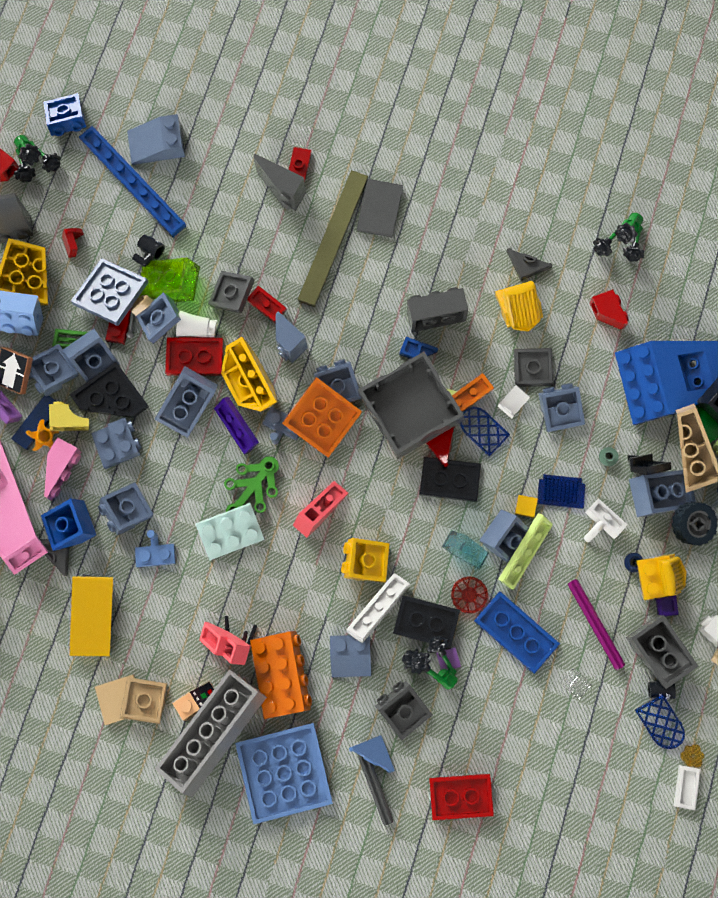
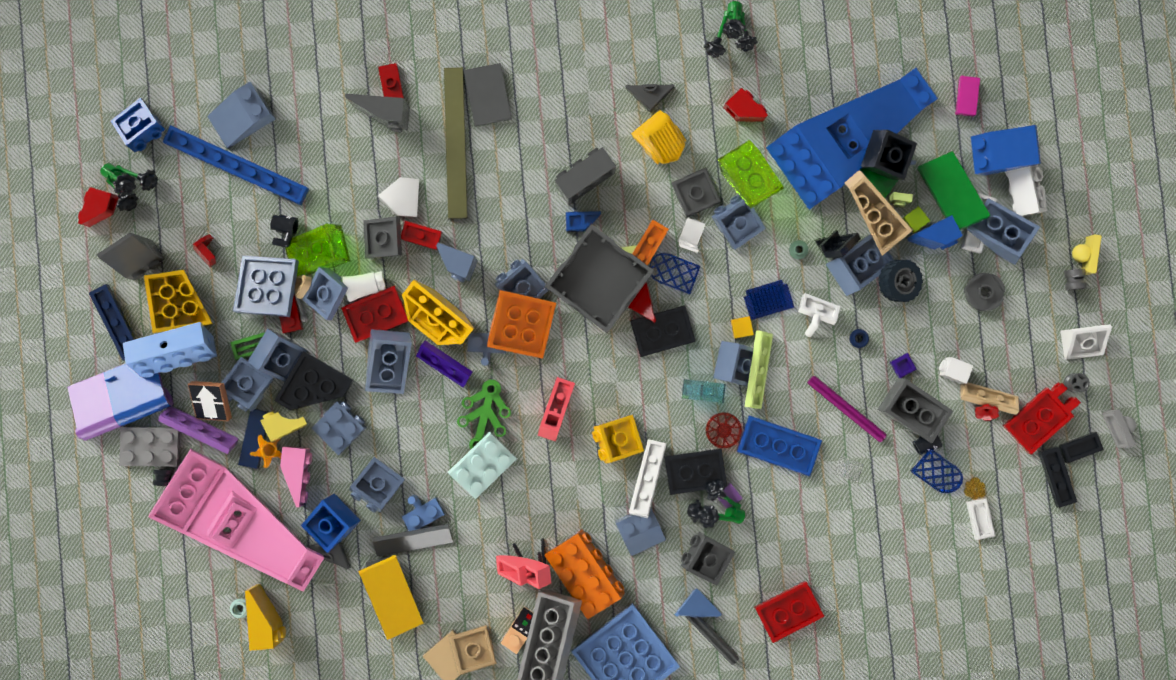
camera: 30 degrees left, 10 degrees up
(135, 573) = (412, 540): none -> dark grey tile
(264, 264) = (402, 197): none -> white slope
(589, 367) = (749, 174): none -> clear neon green slope
(661, 576) = (889, 342): yellow piece -> none

